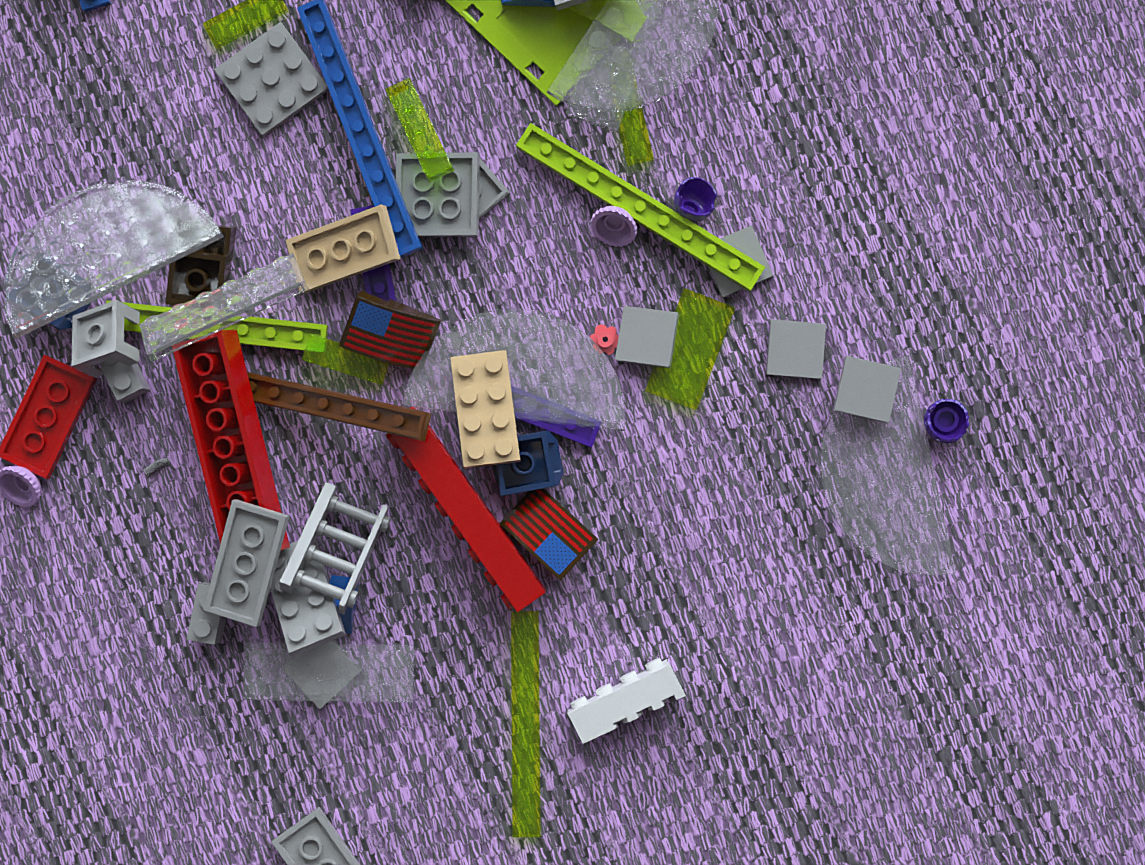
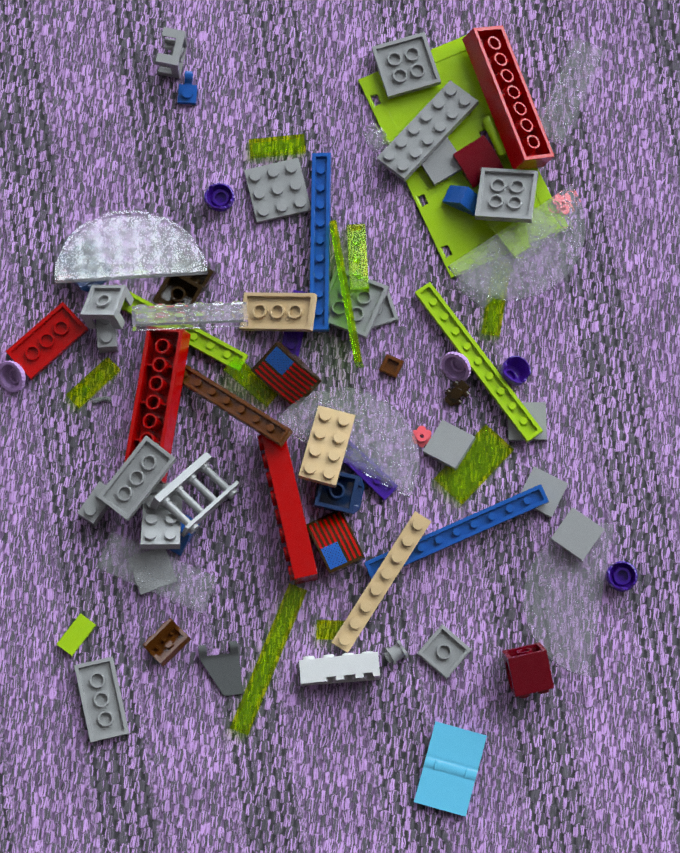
camera: 25 degrees right, 10 degrees down
(134, 447) = (93, 382): none -> clear neon green tile
(195, 121) = (219, 197): none -> dark purple hair
(257, 797) = (76, 634): none -> lime tile
(381, 759) = (166, 642): none -> reddish brown bracket
(424, 187) = (346, 294): none -> clear neon green tile
(472, 760) = (224, 669): none -> dark grey flag
(525, 260) = (391, 366): none -> reddish brown tile
(598, 648) = (327, 629): none -> clear neon green tile
(626, 266) = (453, 396): none -> dark brown piece
(633, 561) = (381, 582): none -> tan plate
(690, 647) = (395, 653): none -> light grey brick
(705, 452) = (469, 526): none -> blue plate
(752, 617) = (444, 651): none -> light grey tile
(823, 770) = (450, 769): none -> medium azure piece
(876, 601) = (528, 670): none -> dark red brick

